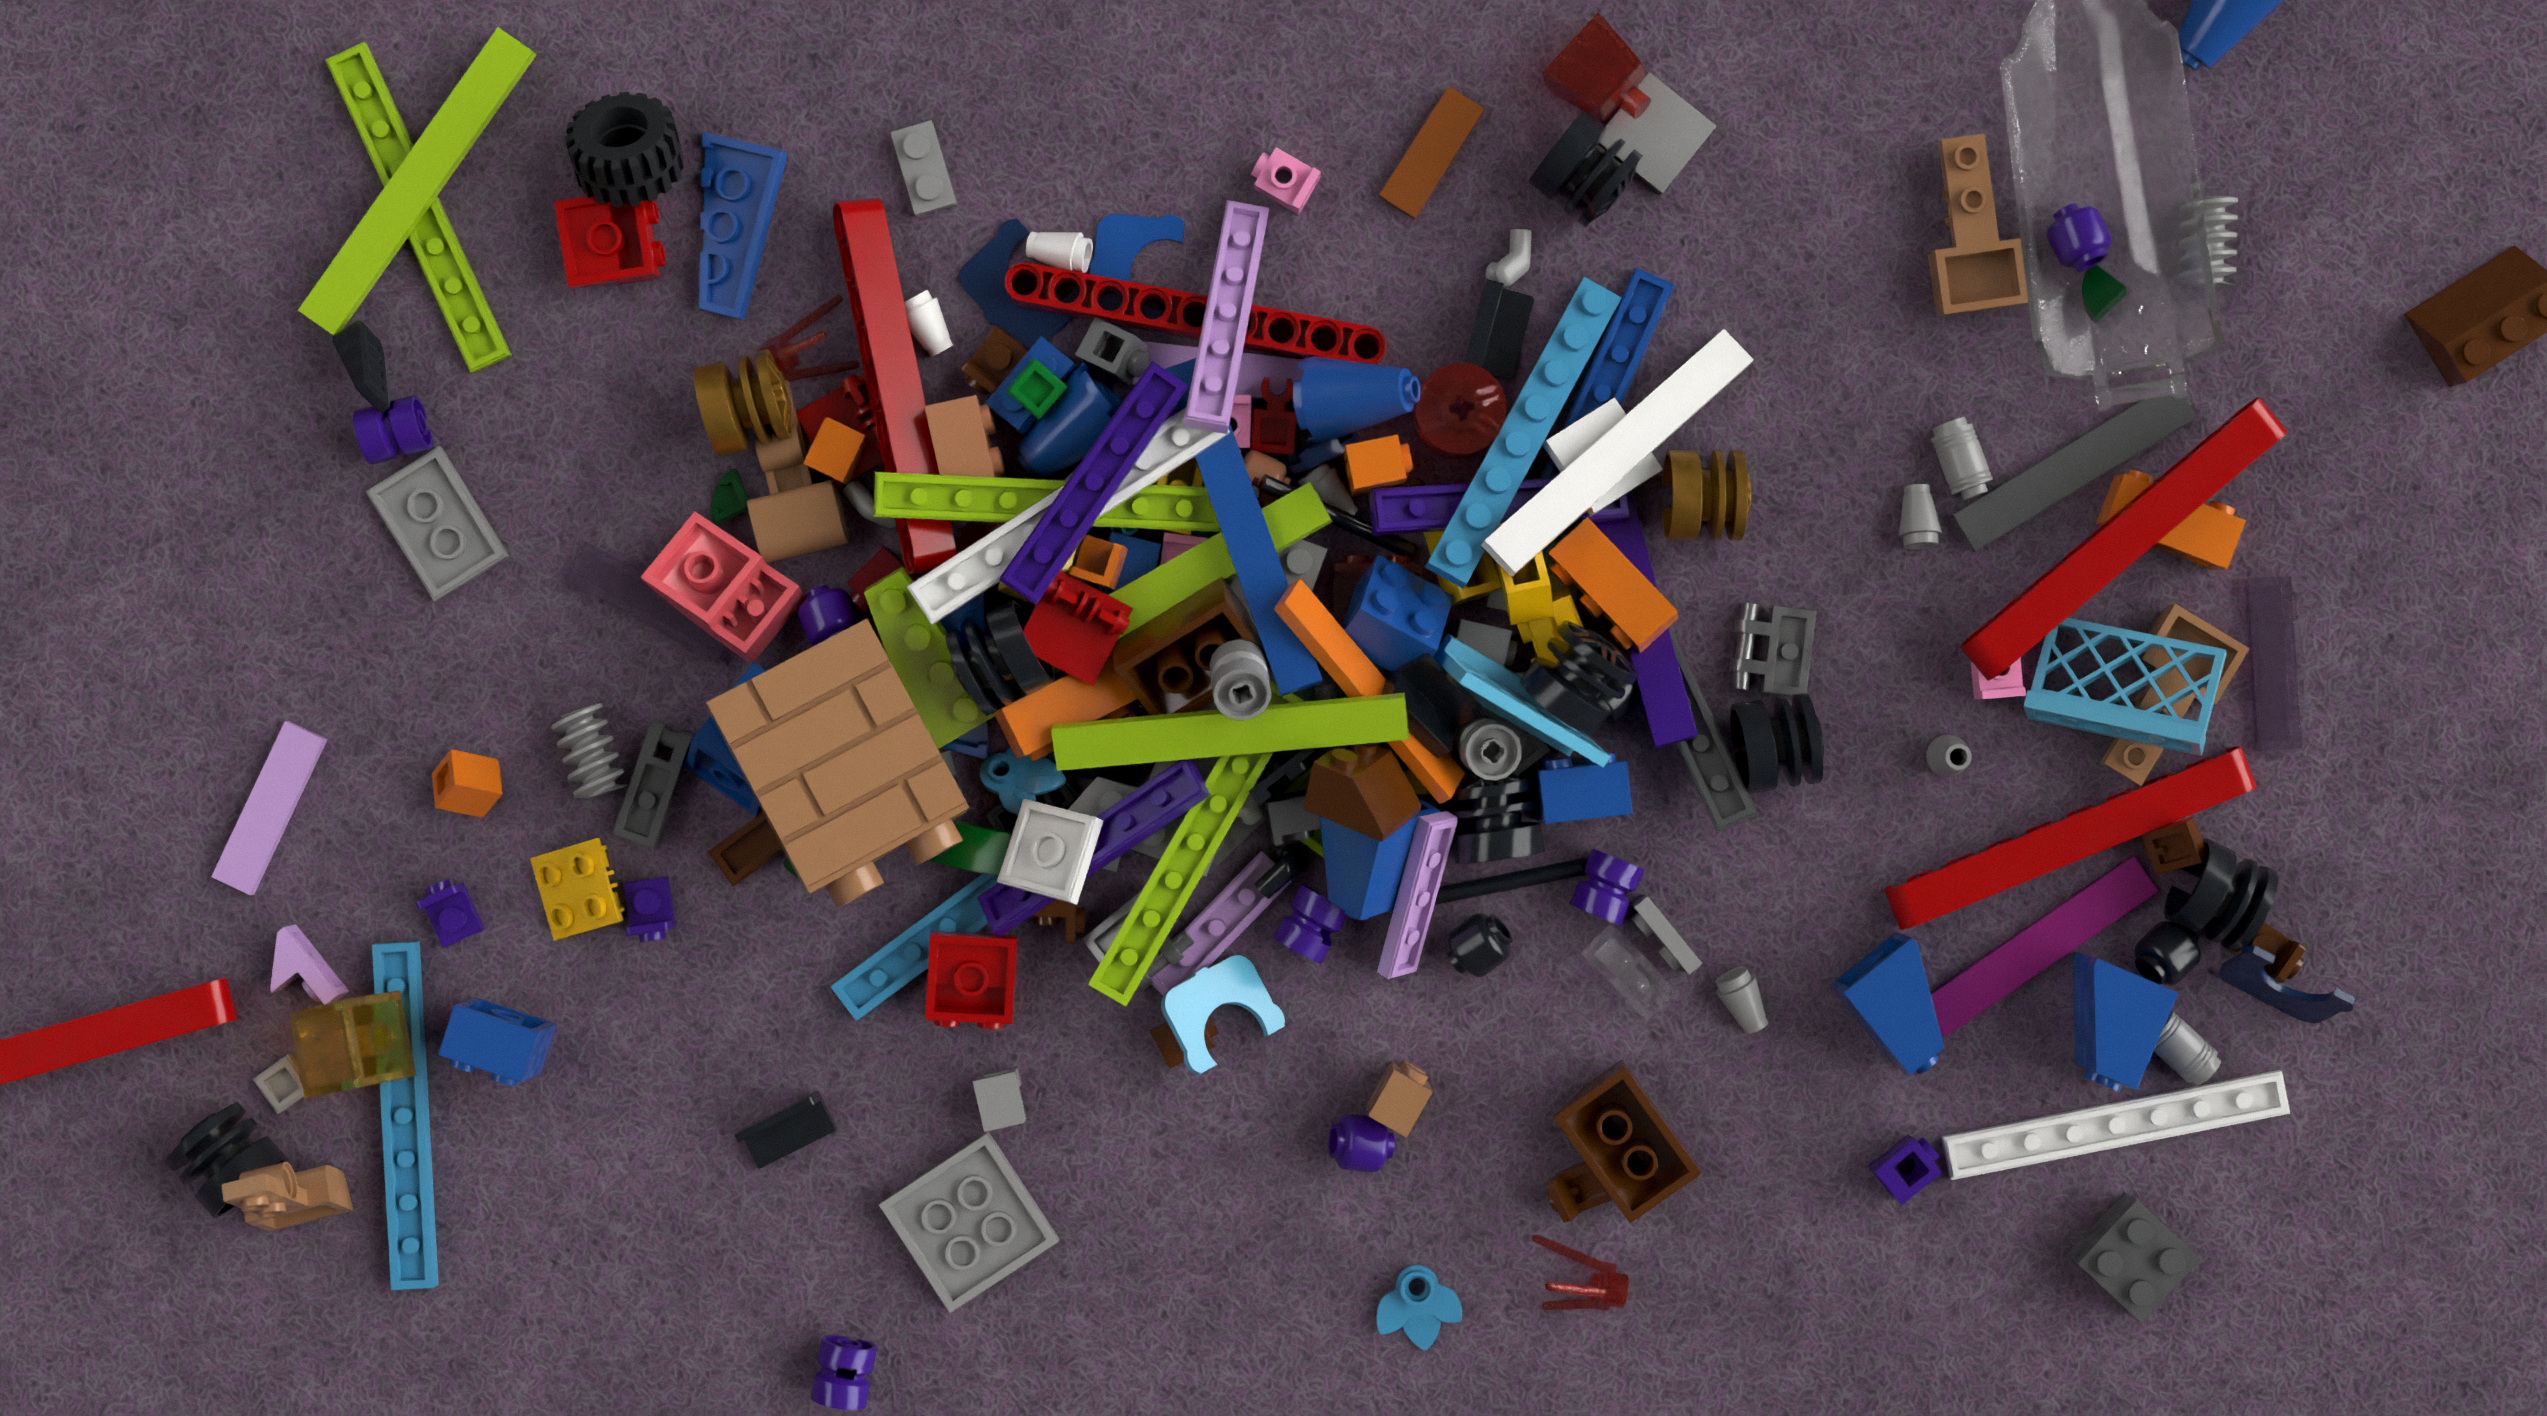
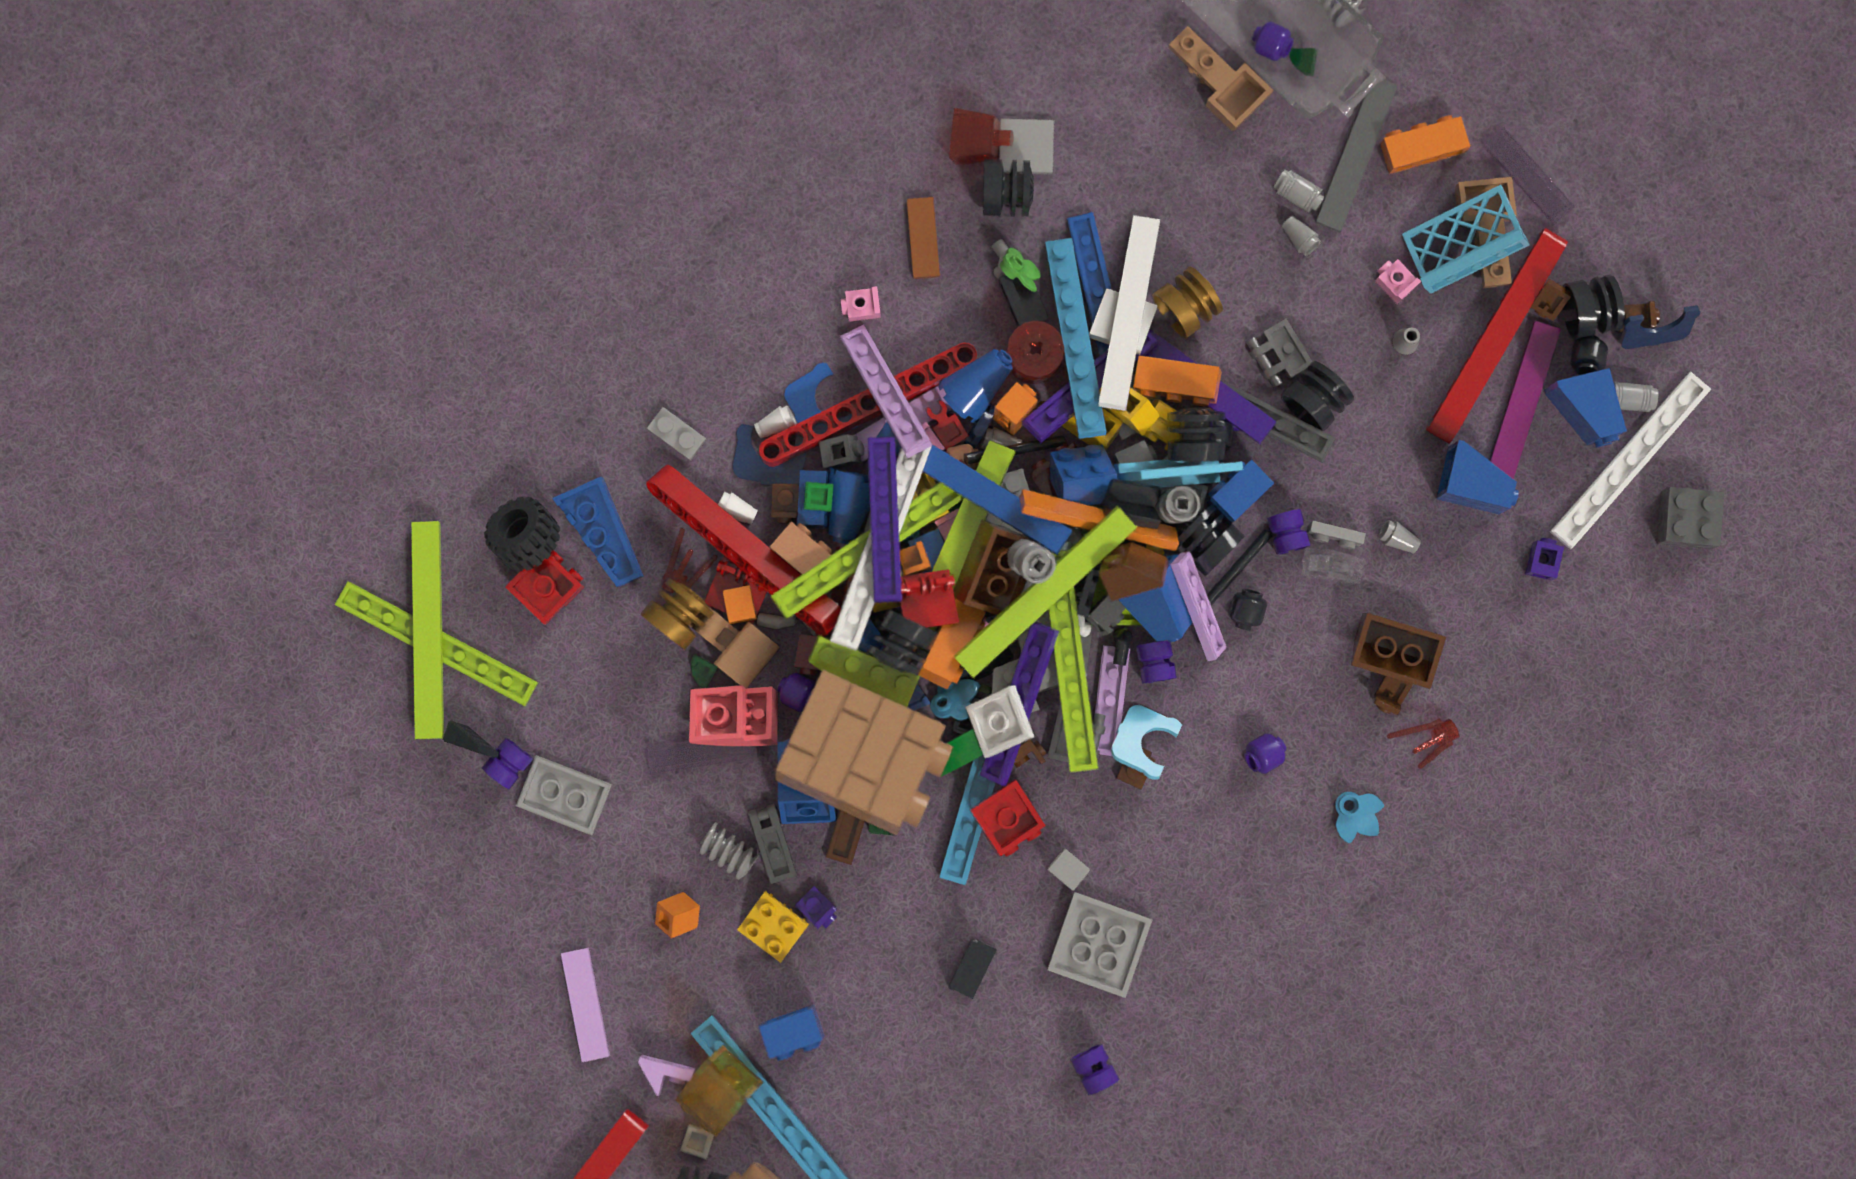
camera: 40 degrees left, 5 degrees down
(451, 912) = (718, 987): dark purple bracket -> none
(1400, 1097) = (1267, 713): medium nougat brick -> none
(1521, 281) = (1015, 266): none -> bright green plate
(2123, 538) = (1408, 169): red beam -> none

